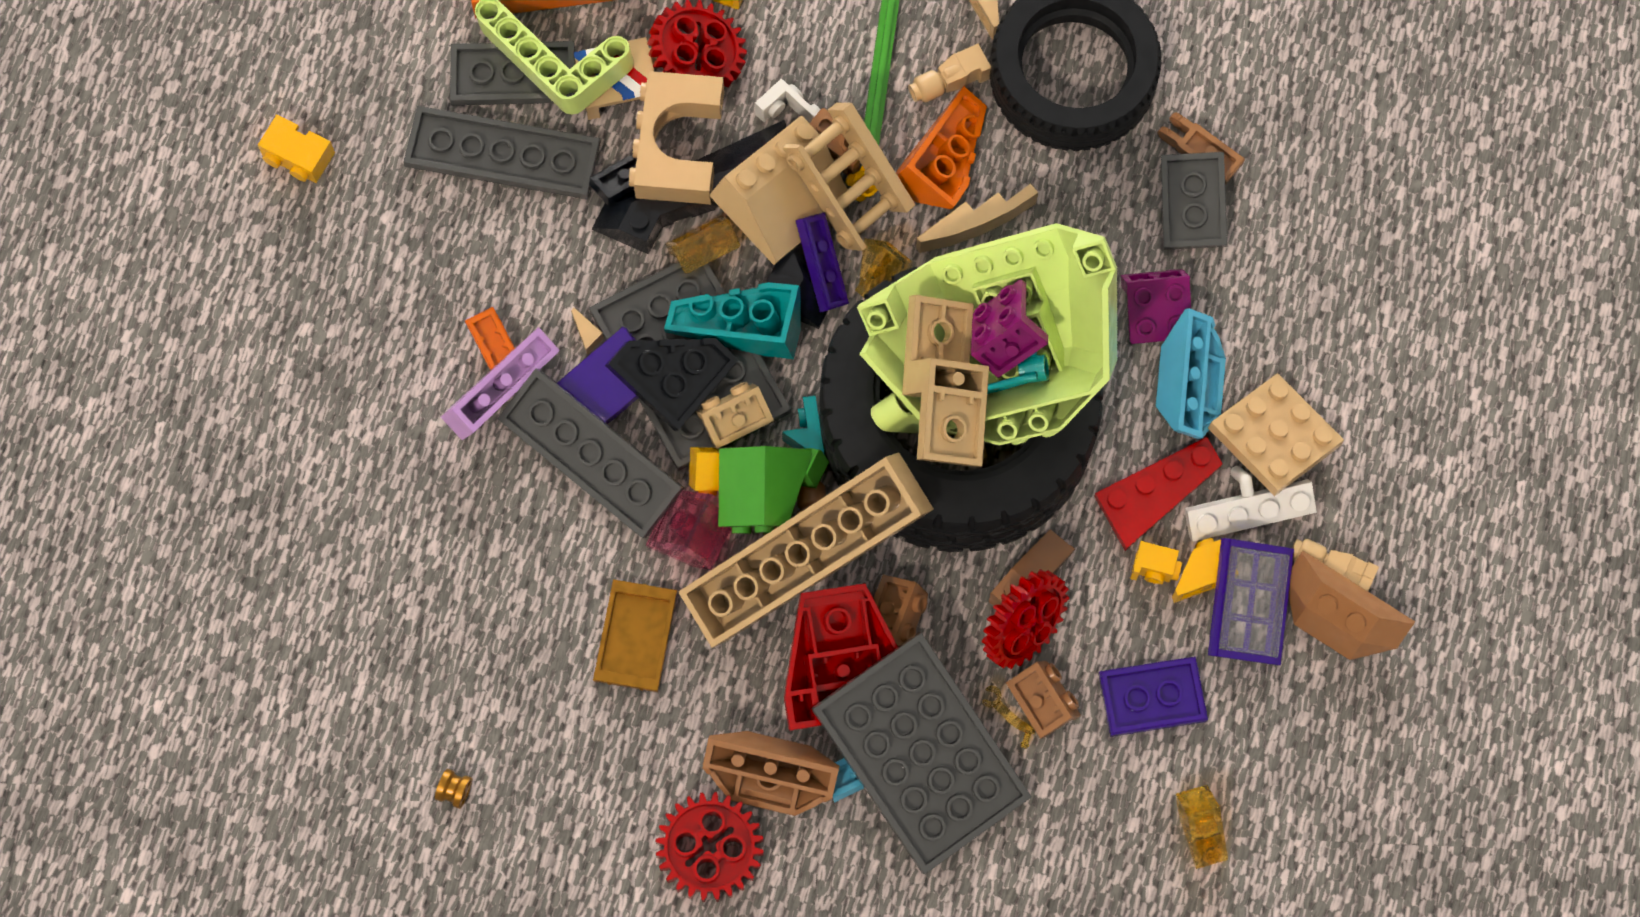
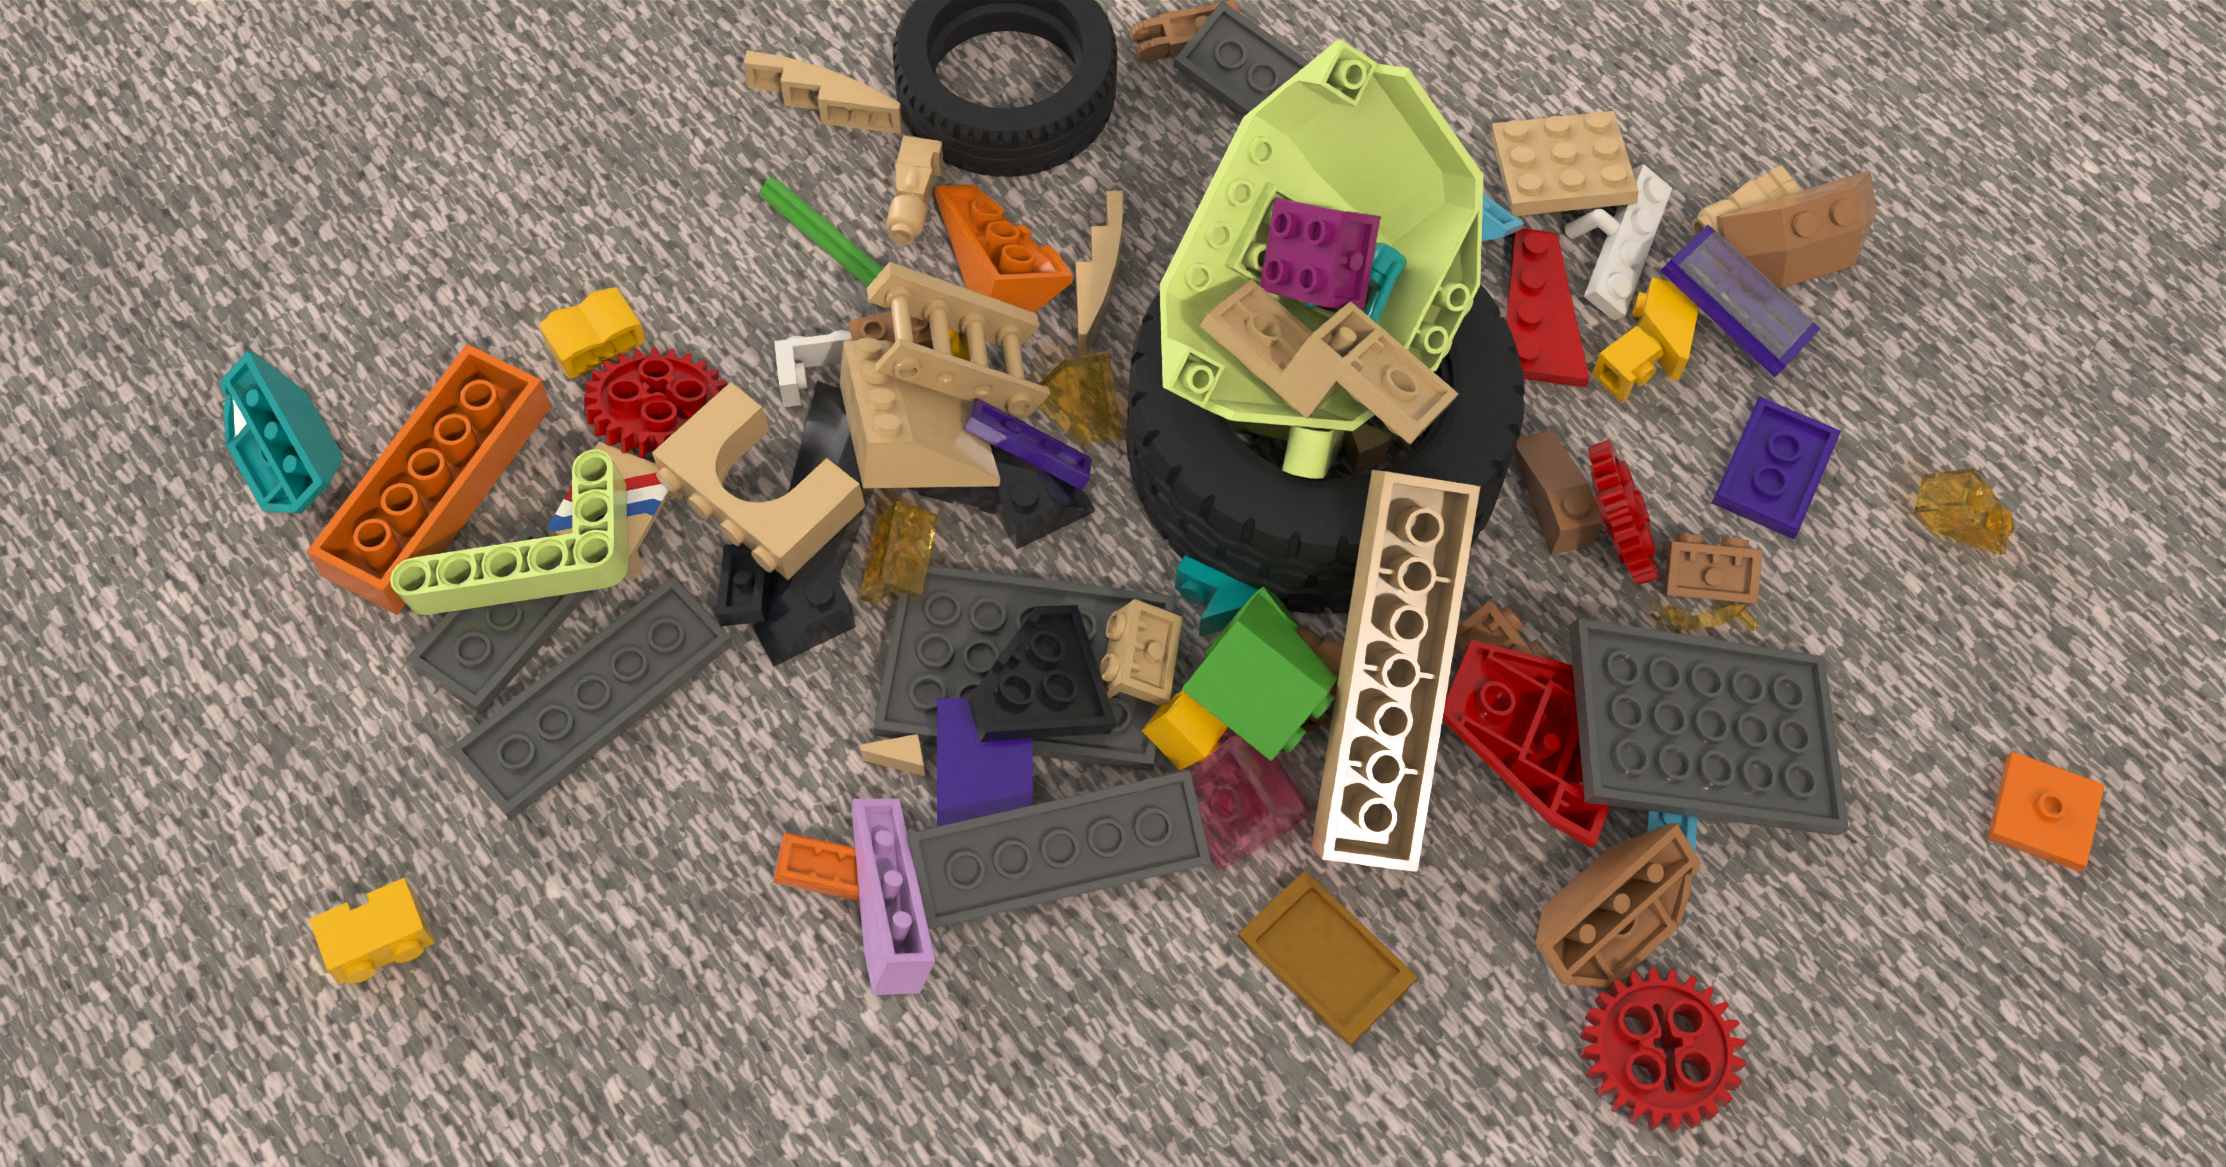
camera: 55 degrees left, 10 degrees down
(749, 320) = (1039, 561): teal wedge -> none

